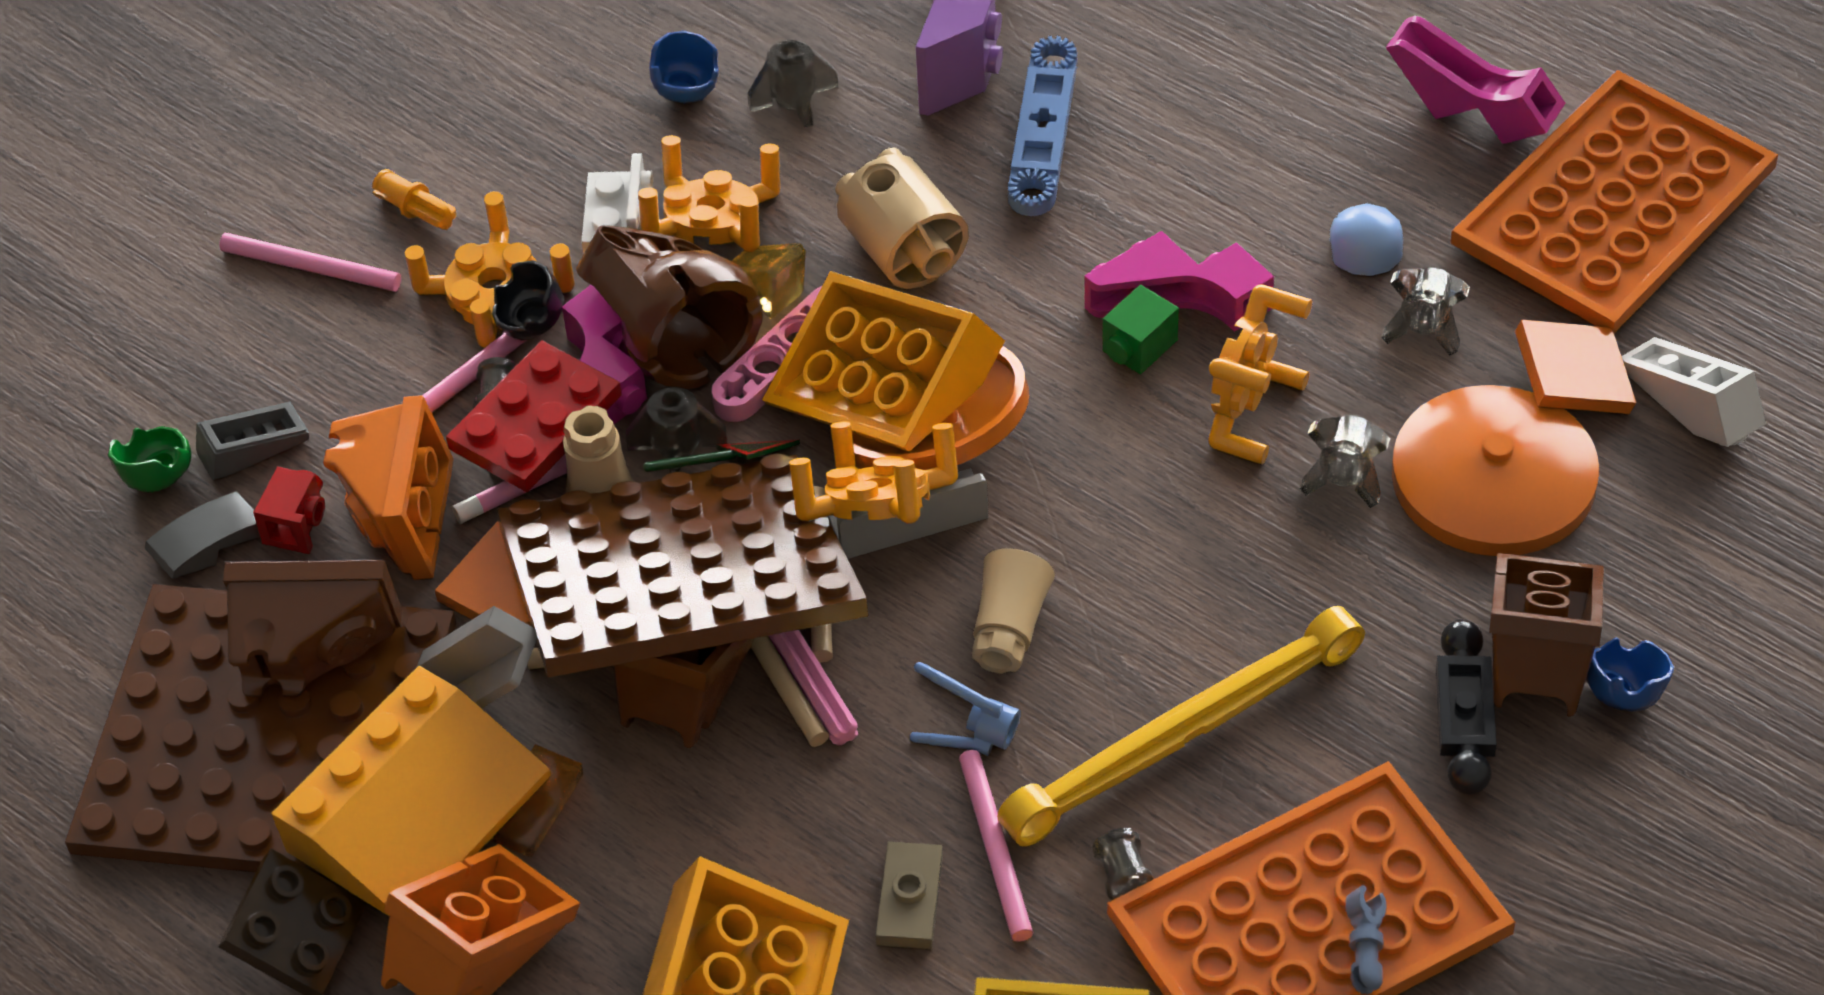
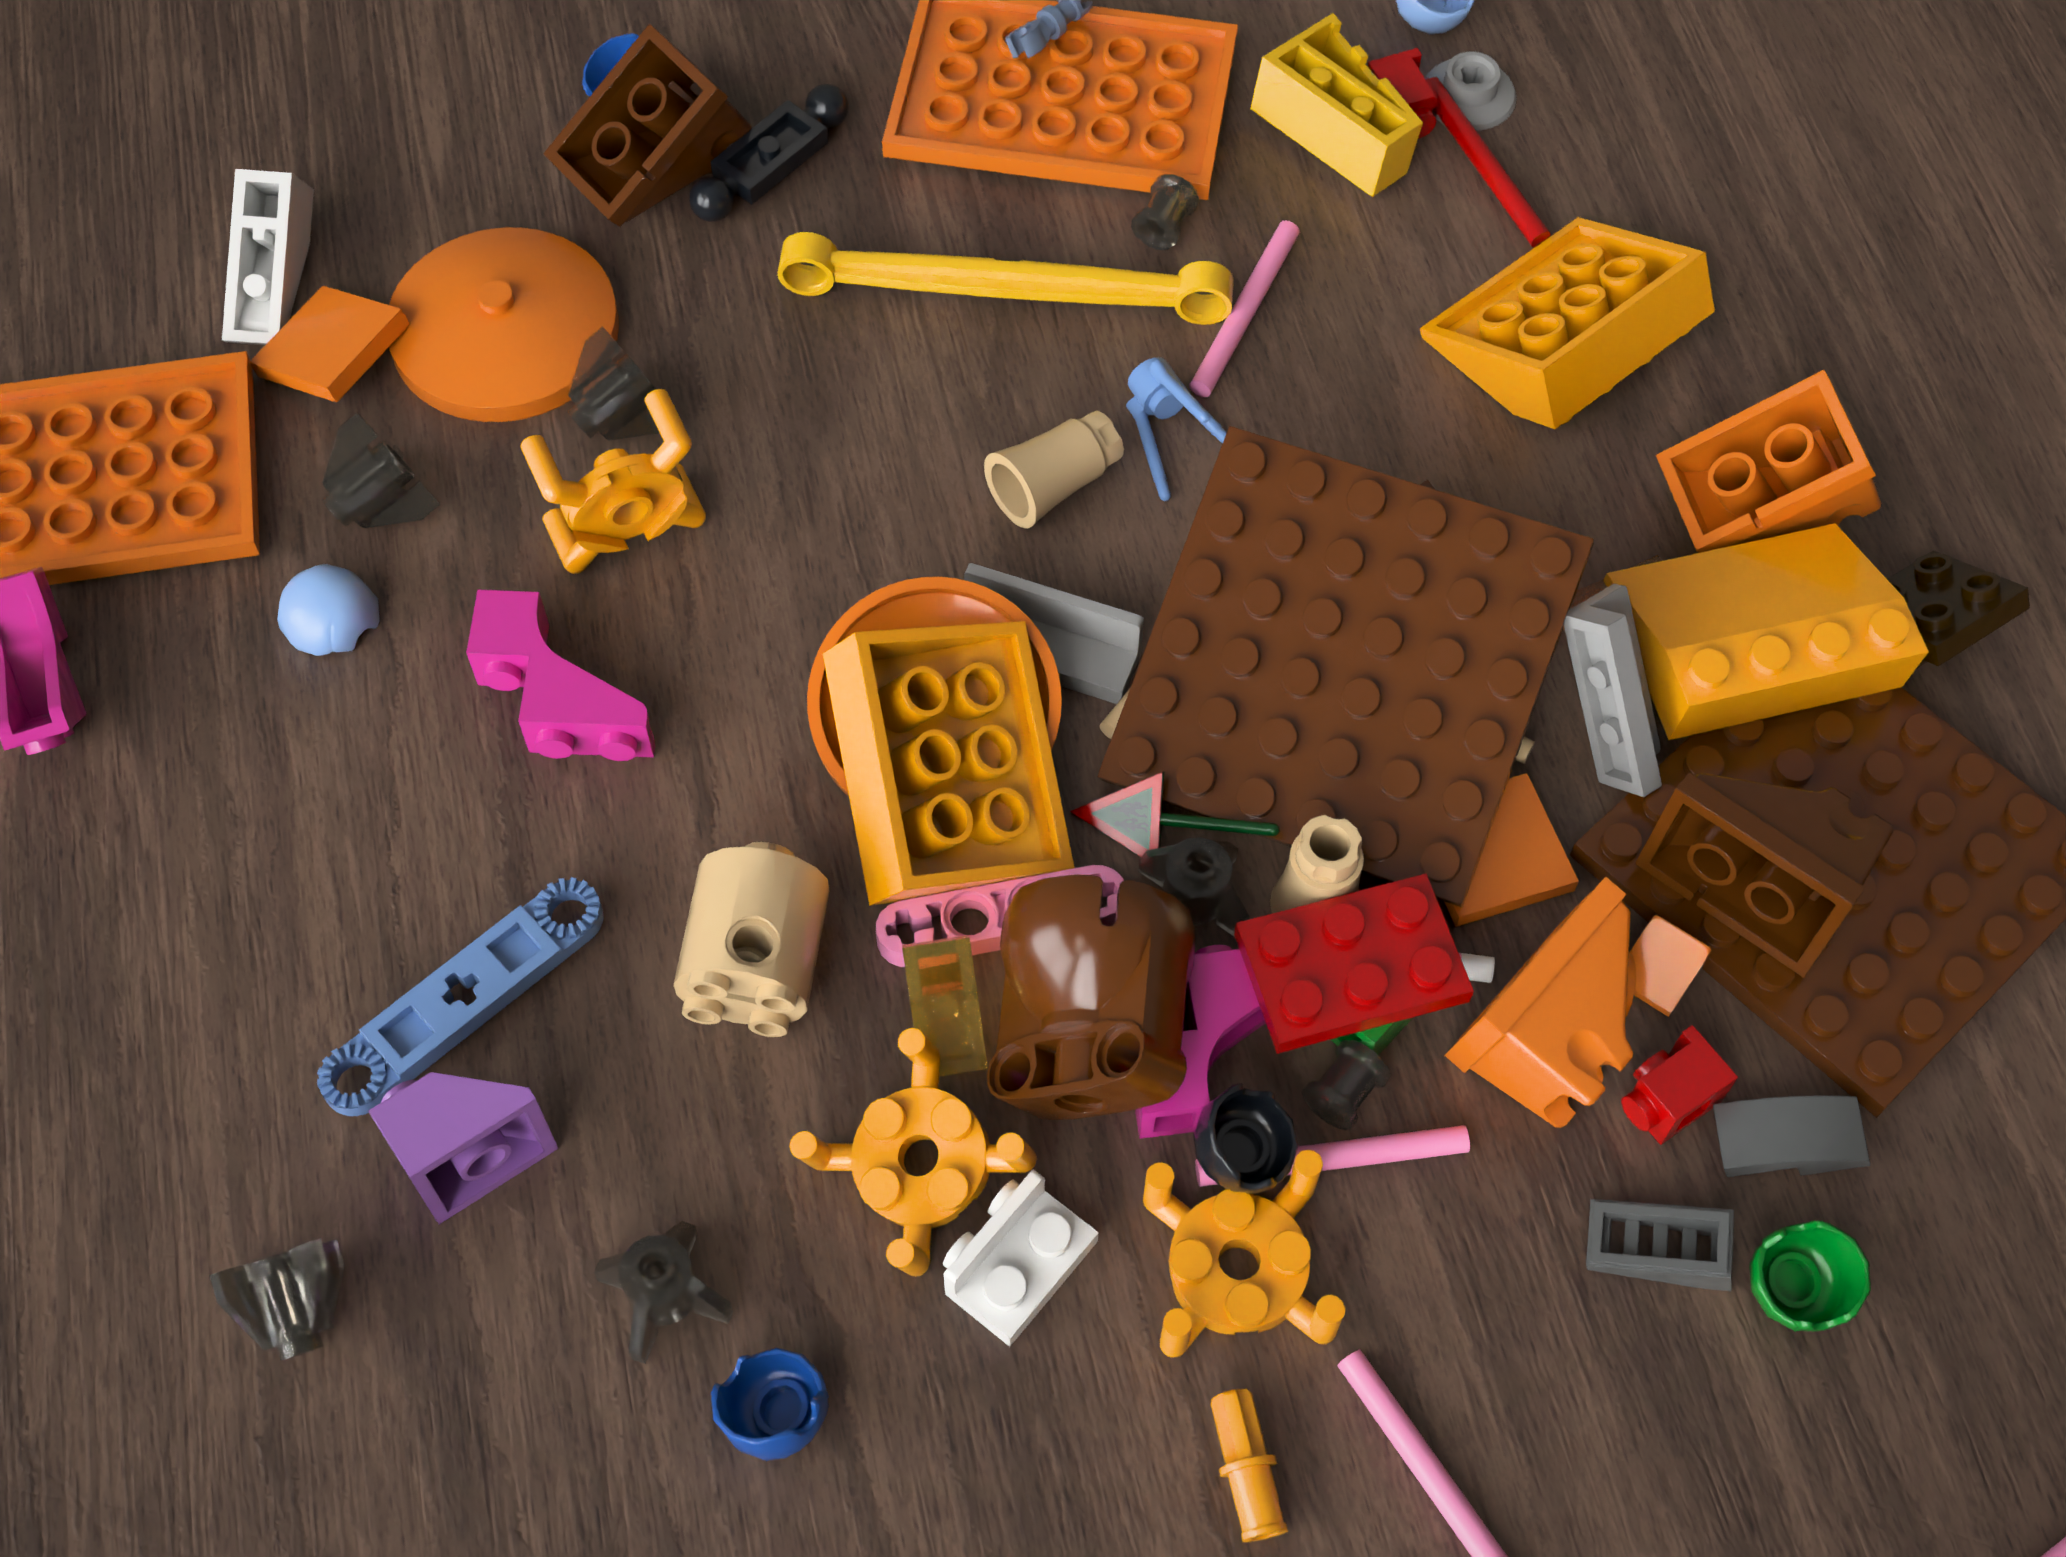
camera: 145 degrees left, 10 degrees up
(884, 491) = (1056, 585): light orange plate -> none
(909, 895) = (1352, 313): dark tan plate -> none
(1140, 329) = (648, 657): green brick -> none

